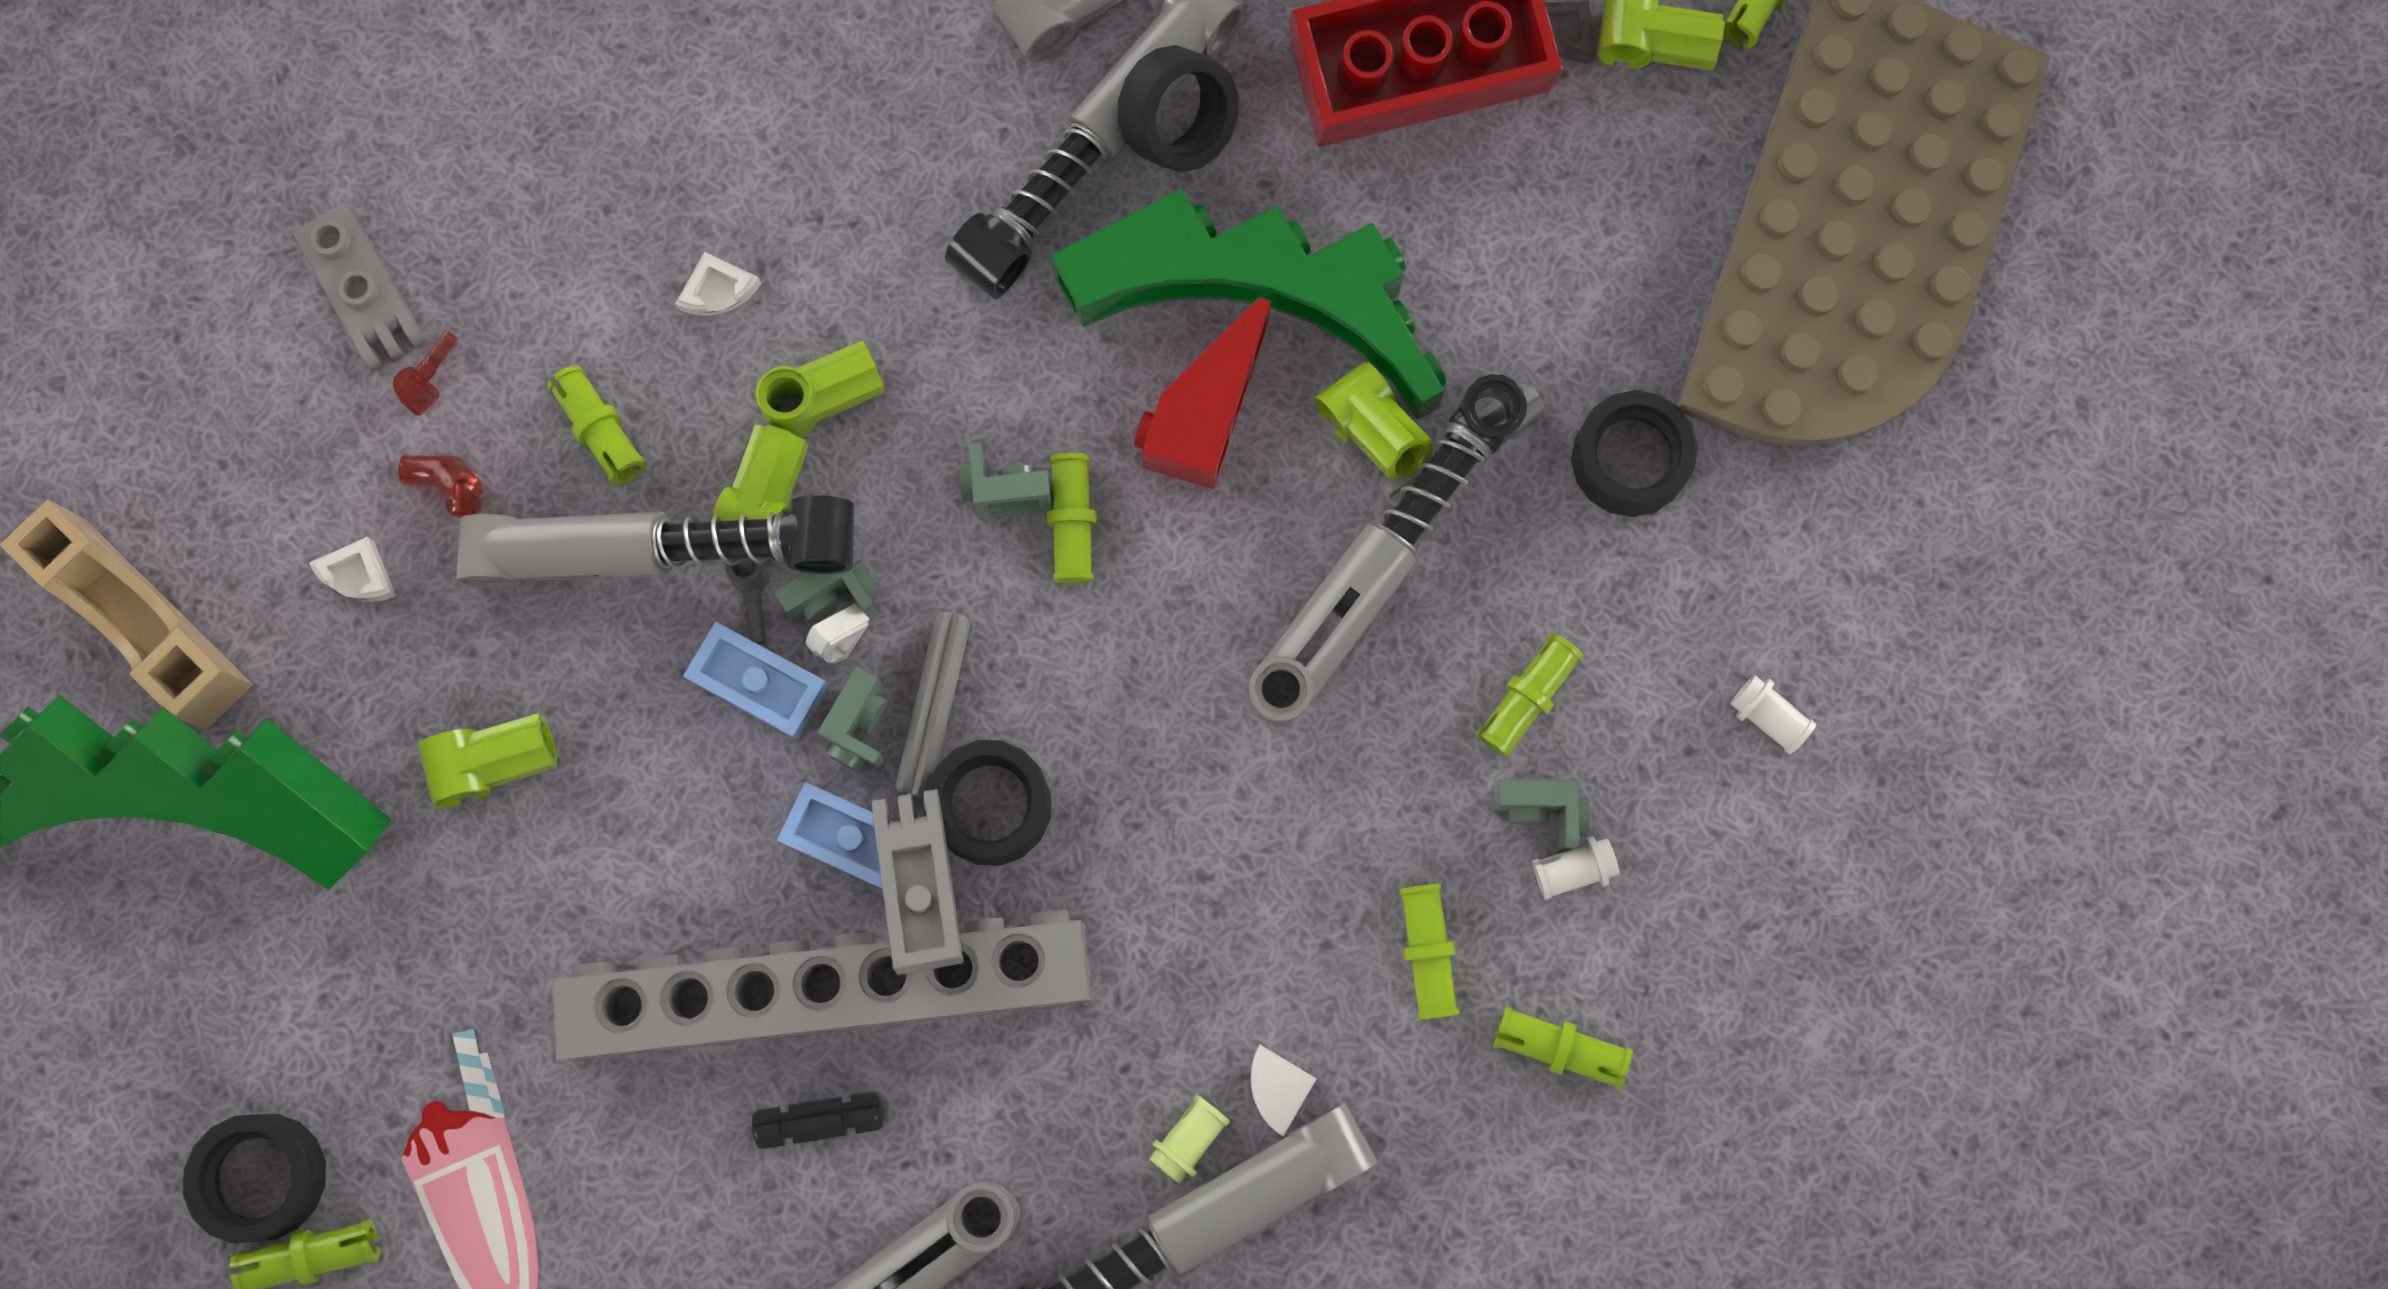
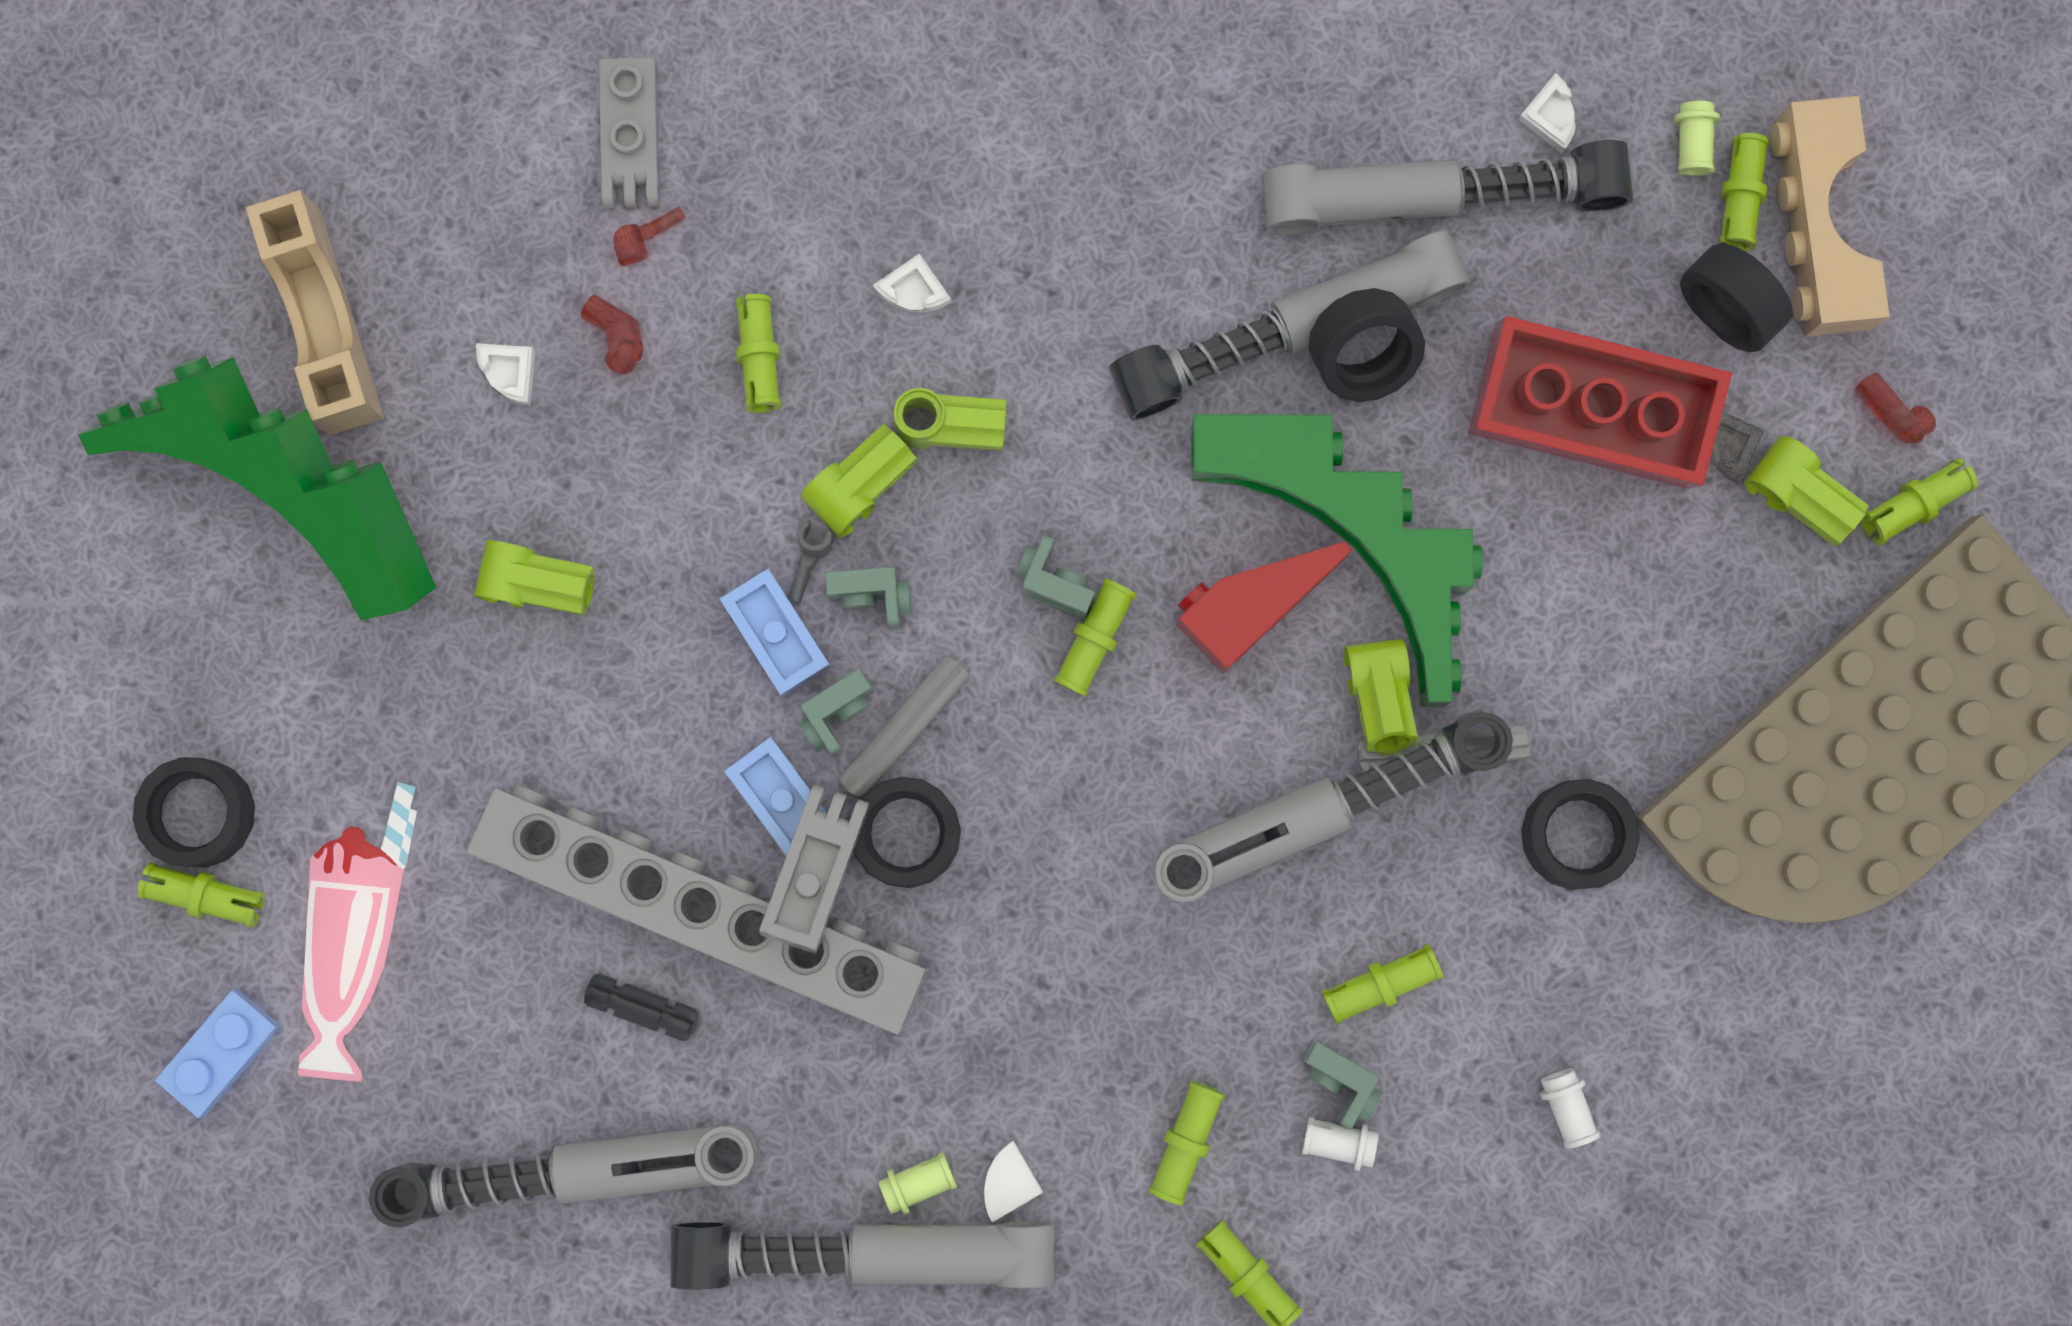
camera: 30 degrees right, 5 degrees up
(505, 551) = (640, 423): piece -> none
(837, 634) = (859, 633): white tile -> none

